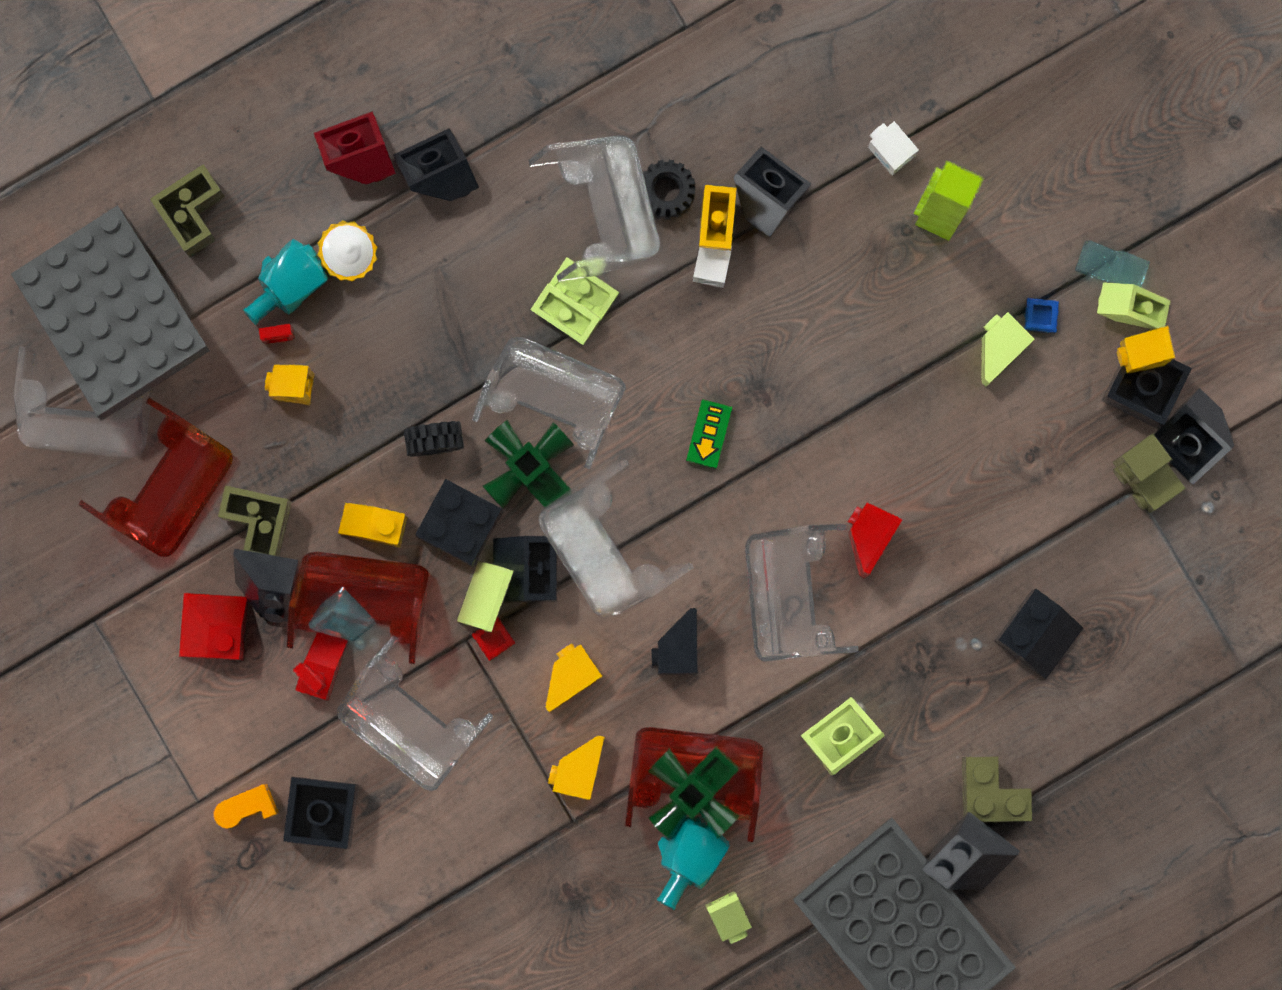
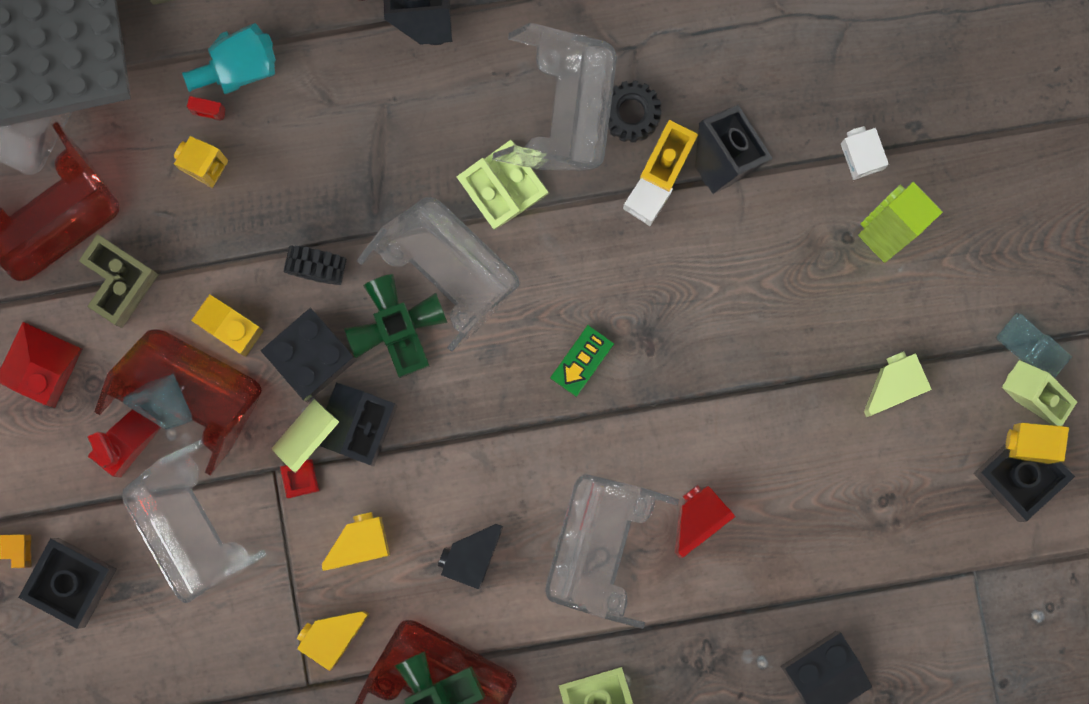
camera: 25 degrees right, 0 degrees up
(266, 582) = (101, 340): black slope -> none
(347, 251) = (303, 54): white piece -> none
(590, 553) = (420, 433): clear windscreen -> none
(1041, 315) = (946, 369): blue tile -> none
(1148, 474) = (992, 562): olive brick -> none
(1196, 436) = (1051, 543): black slope -> none

